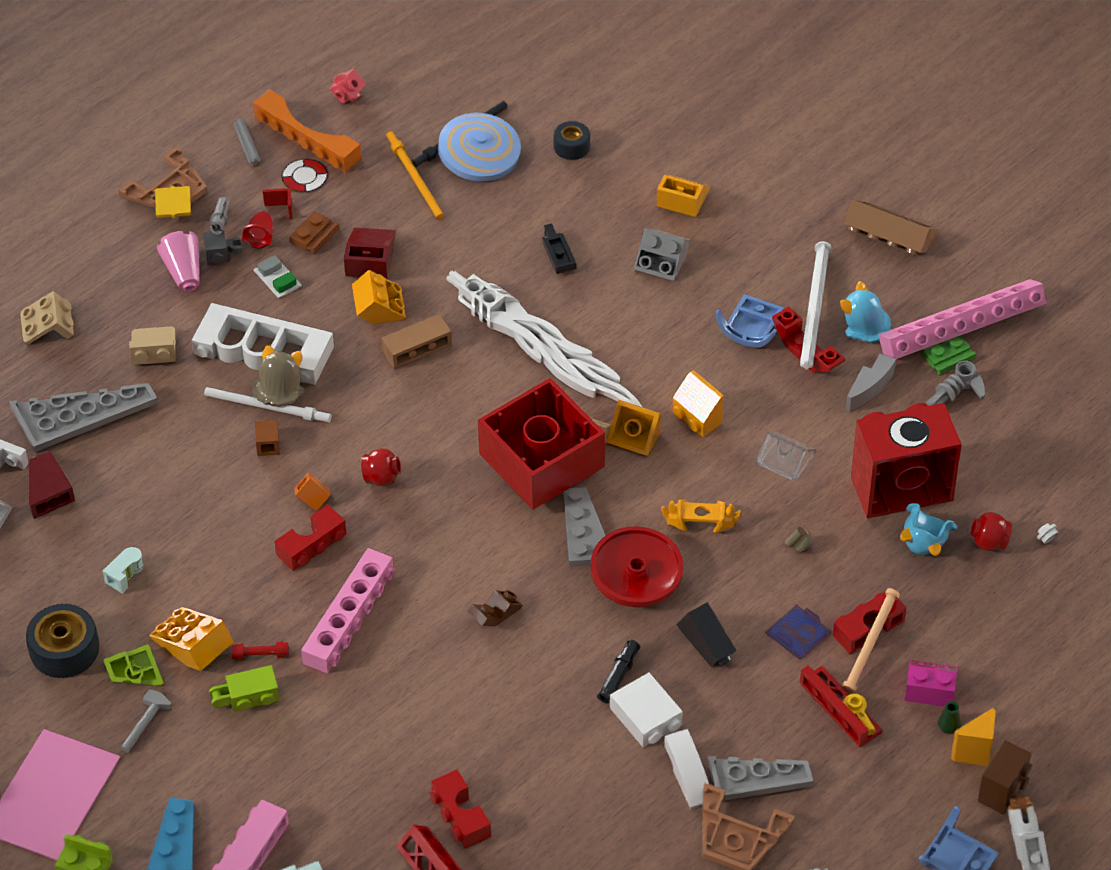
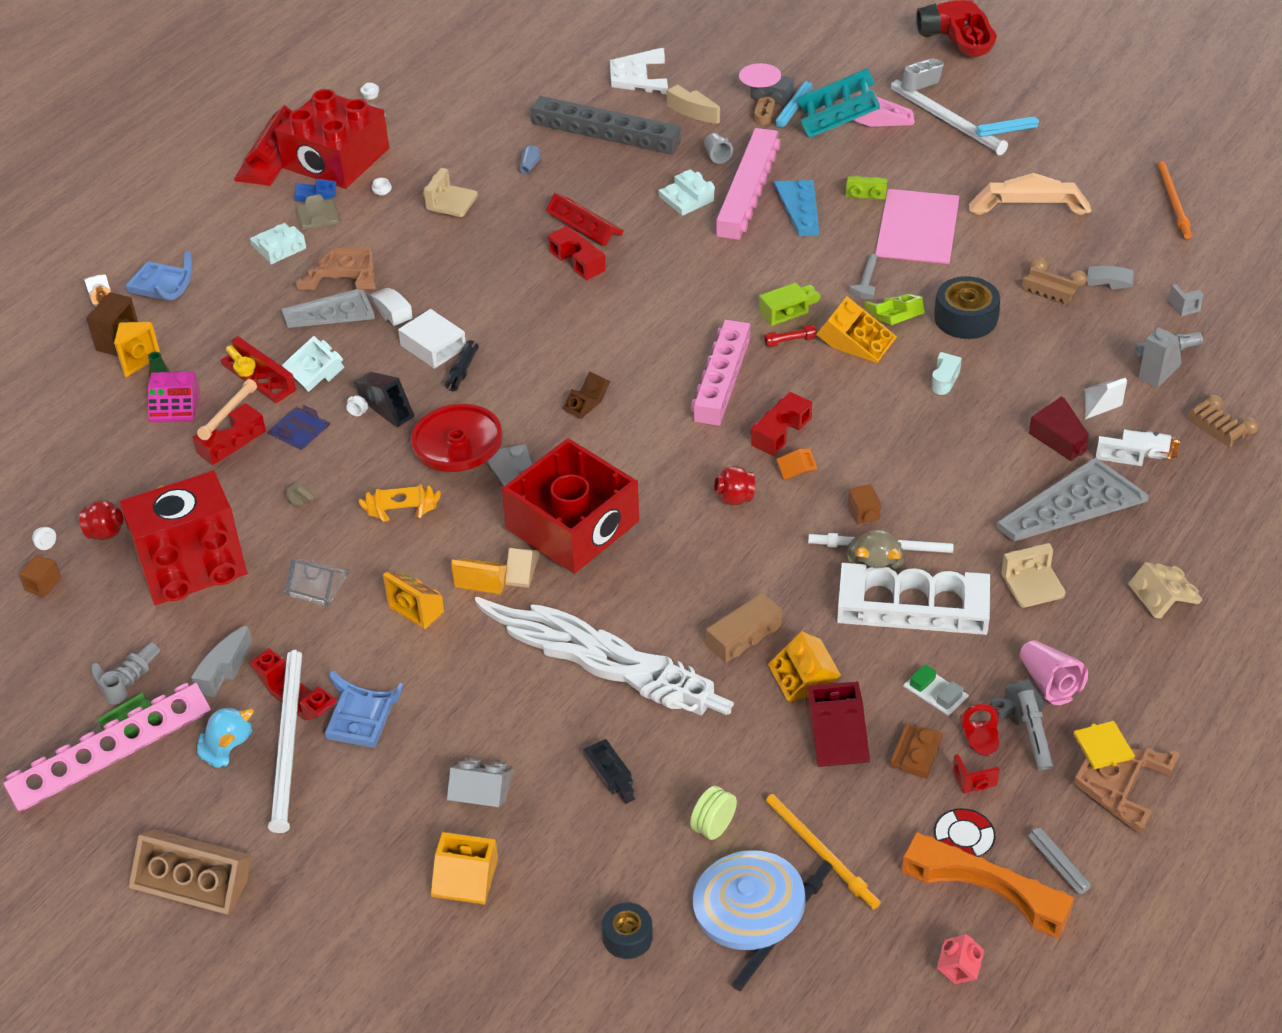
camera: 170 degrees right, 5 degrees down
(488, 196) = (713, 812): none -> yellowish green head
(737, 638) = (356, 405): none -> white plate
(778, 695) = (314, 363): none -> light aqua plate
(1044, 491) = (40, 575): none -> dark orange brick

